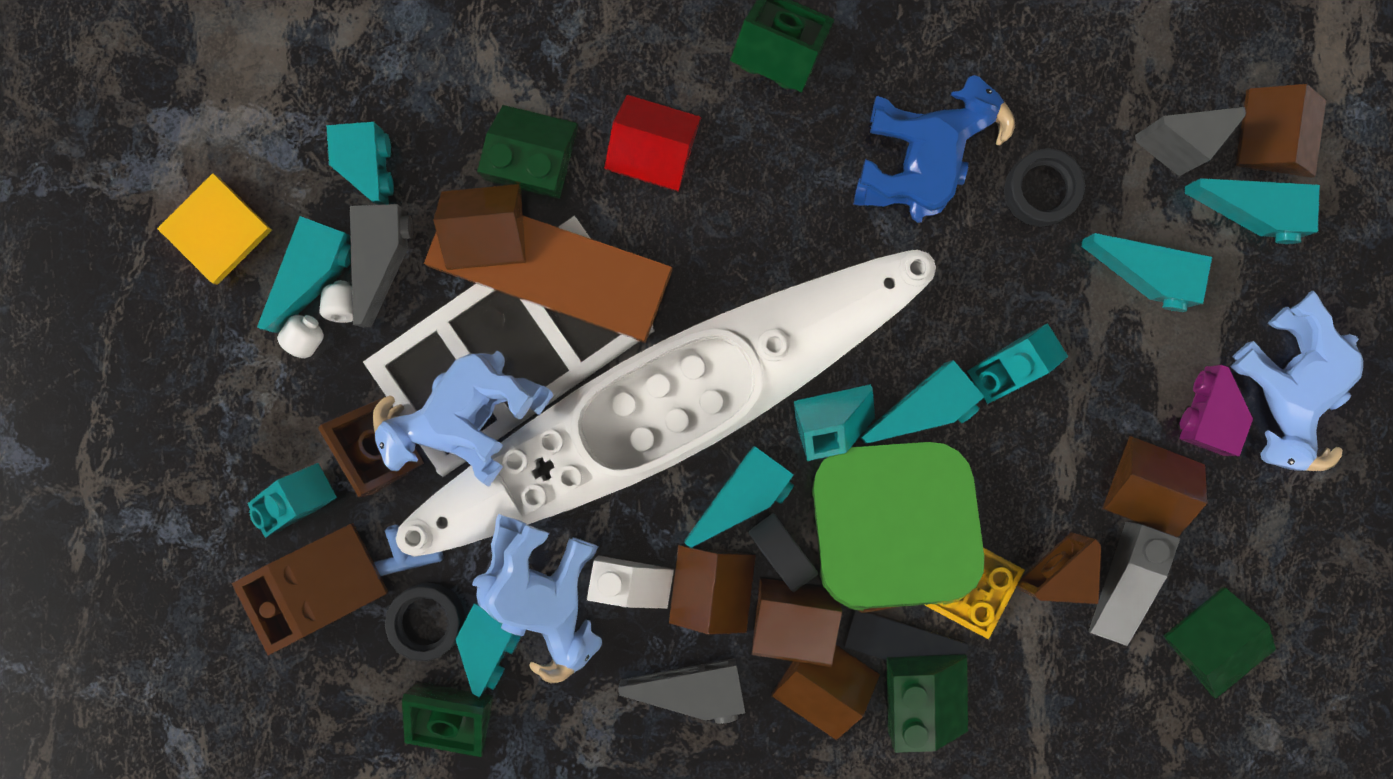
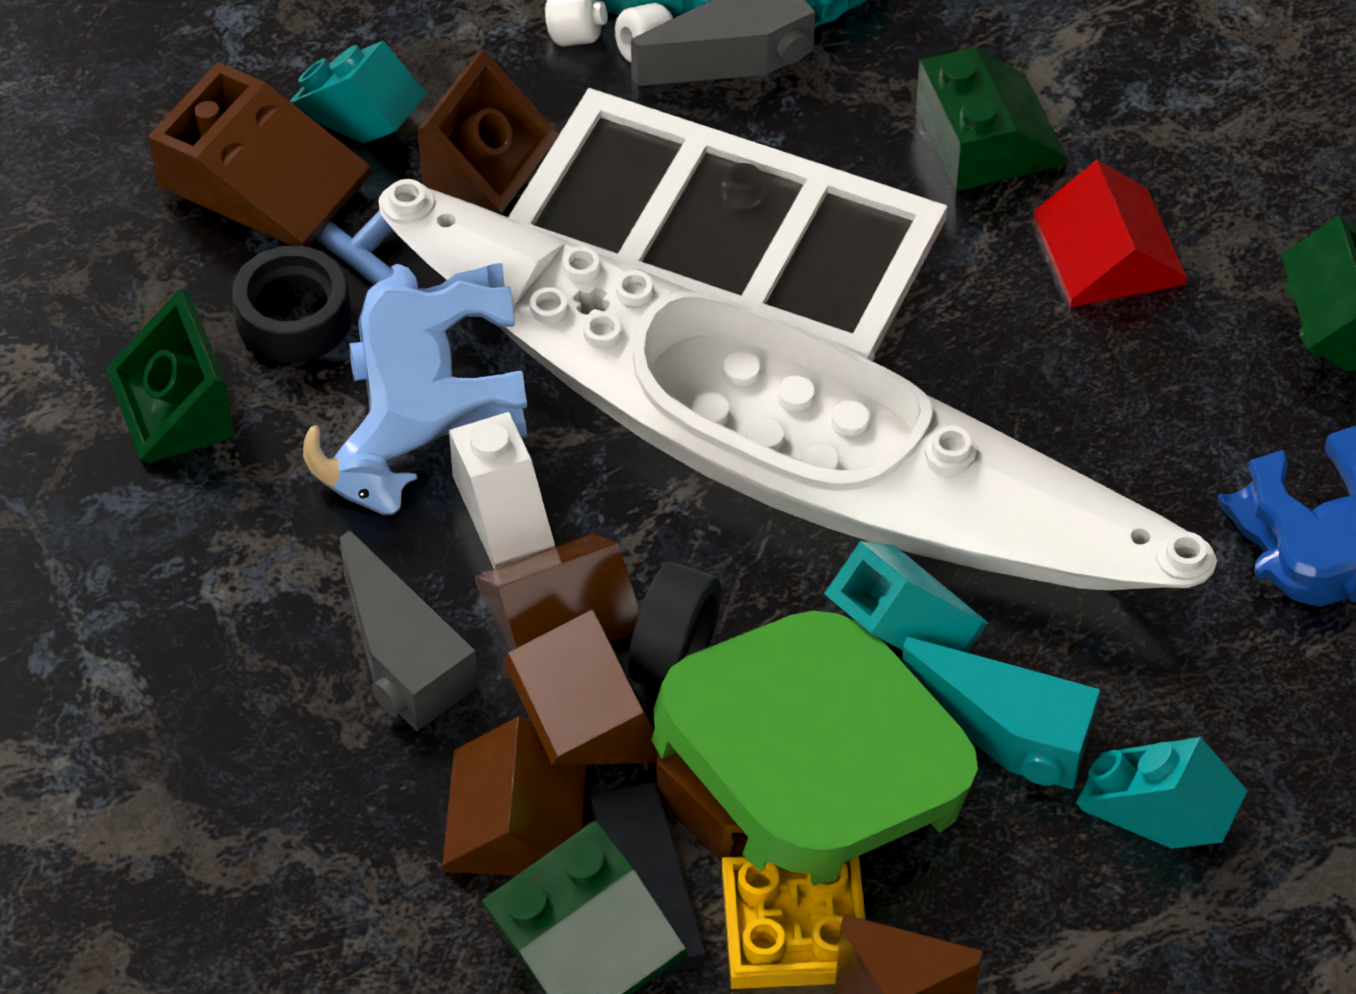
camera: 55 degrees right, 35 degrees down
(455, 414) = (598, 180): light blue animal -> none
(481, 227) = (850, 103): reddish brown slope -> none
(482, 649) = (301, 378): teal slope -> none
(575, 279) = (861, 205): dark orange tile -> none
(747, 492) = (746, 554): teal slope -> none

